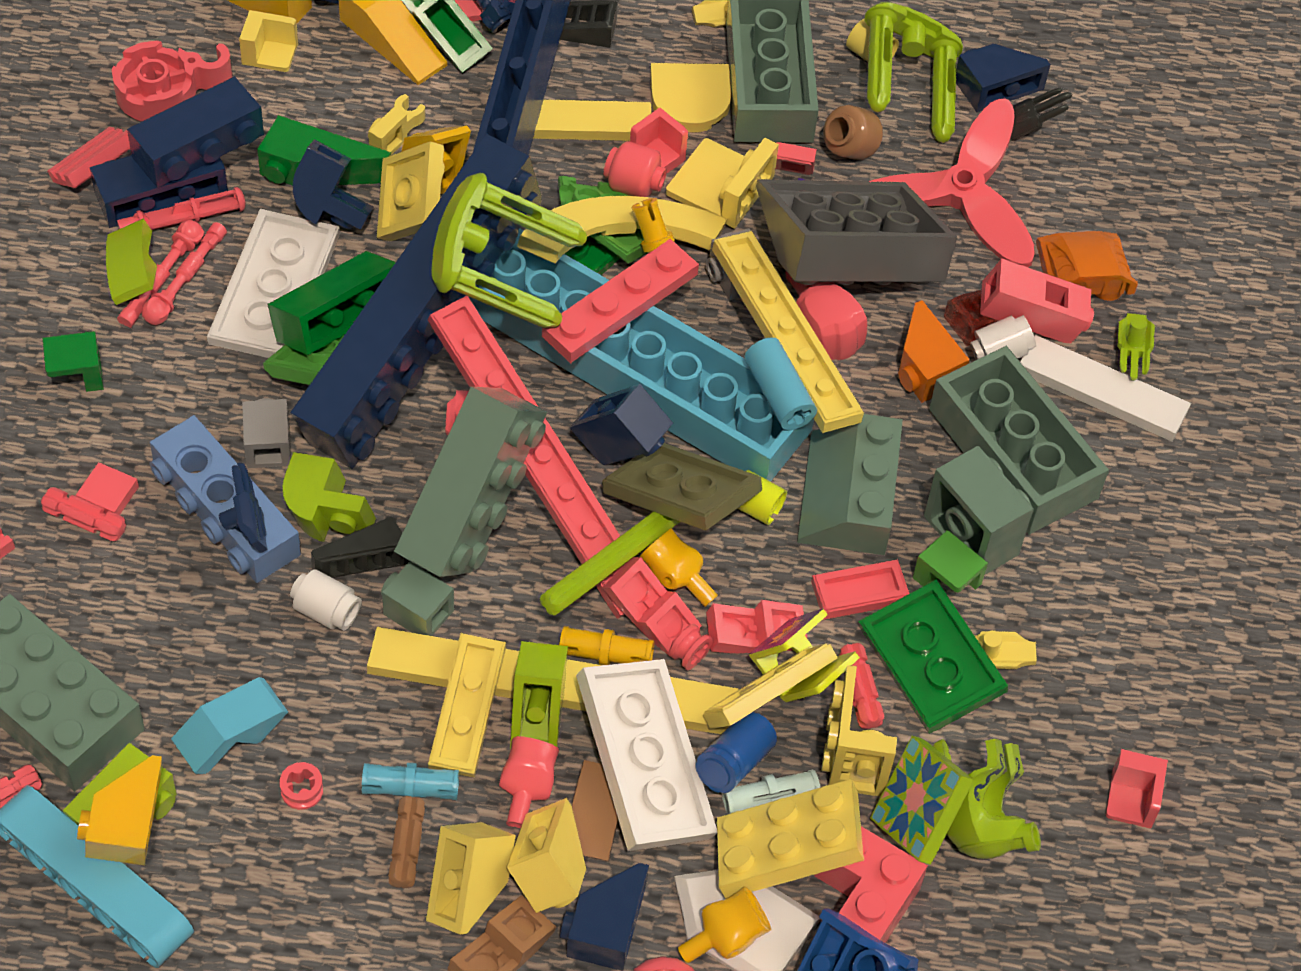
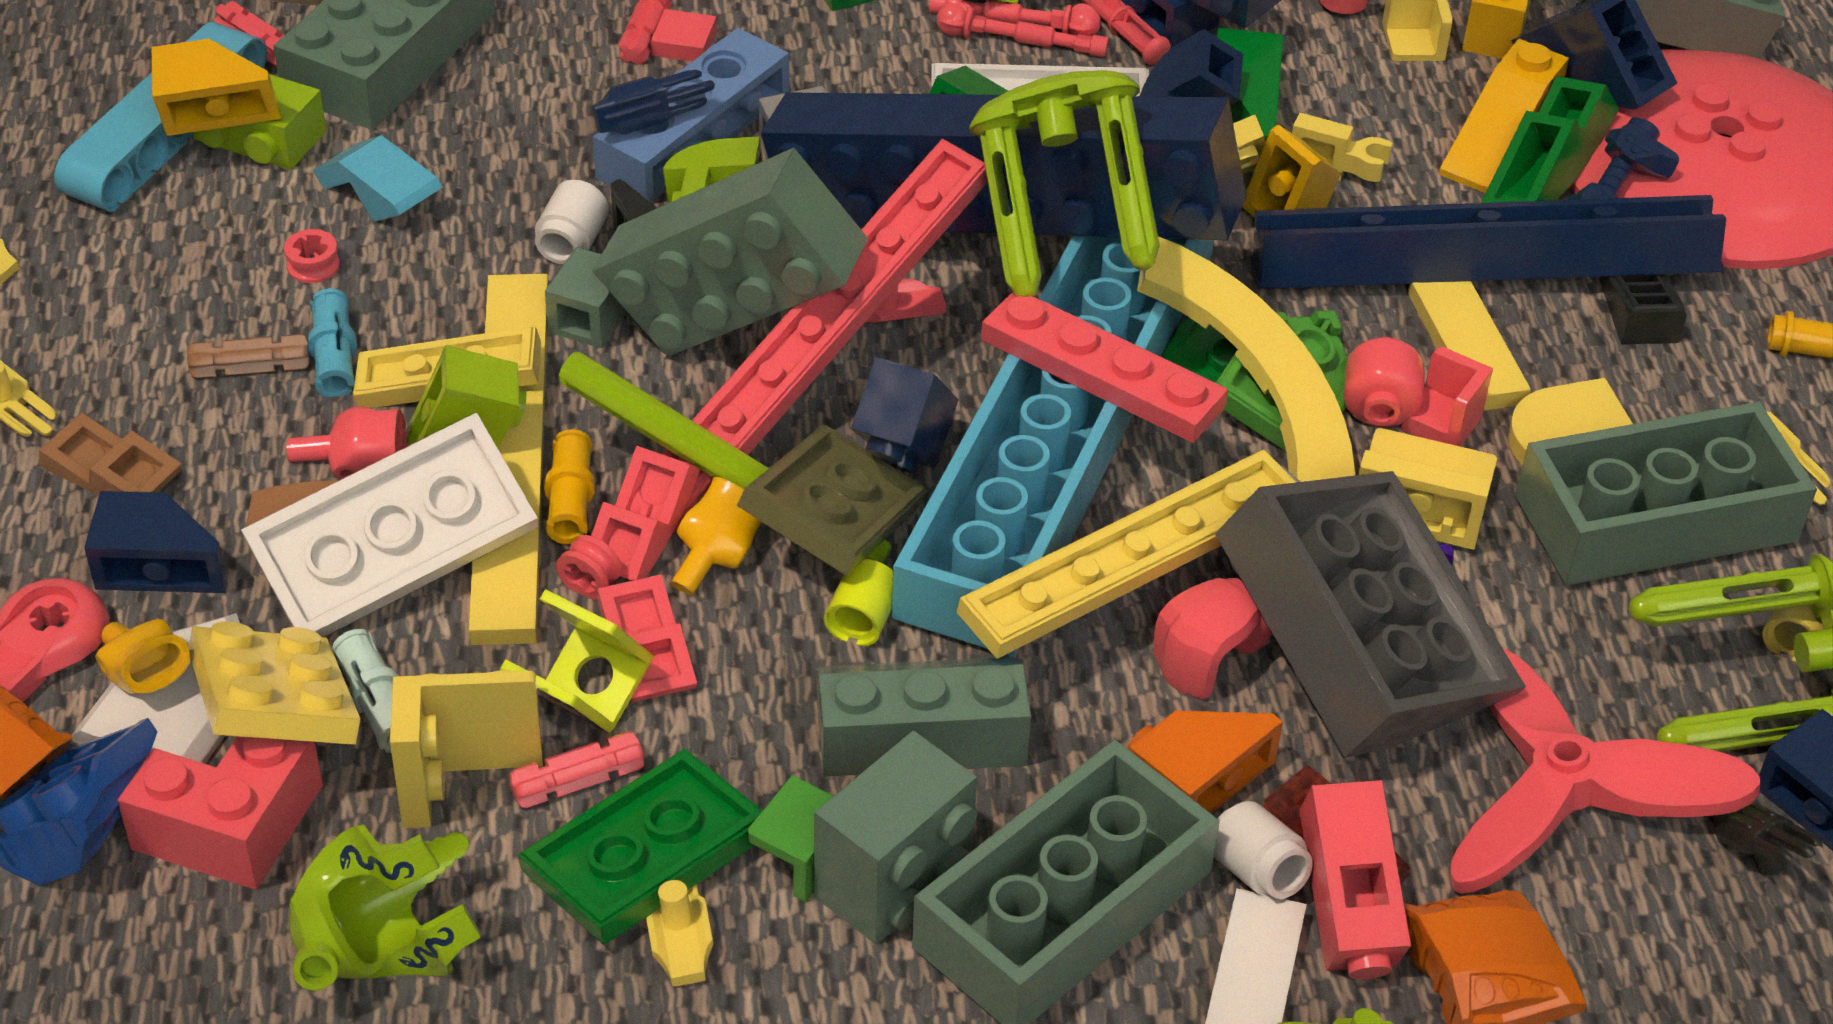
camera: 80 degrees right, 10 degrees down
(468, 874) = (200, 398): light yellow slope -> none
(548, 857) = (223, 464): light yellow slope -> none
(651, 224) = (1253, 410): yellow pin -> none
(736, 752) = (415, 624): blue piece -> none
(769, 686) = (528, 640): light yellow tile -> none
(780, 383) = (1013, 538): medium azure piece -> none
(796, 158) = (1505, 555): coral tile -> none
(852, 132) = (1589, 609): medium nougat head -> none
(859, 588) = (745, 744): coral tile -> none
(921, 799) = (329, 819): tile -> none

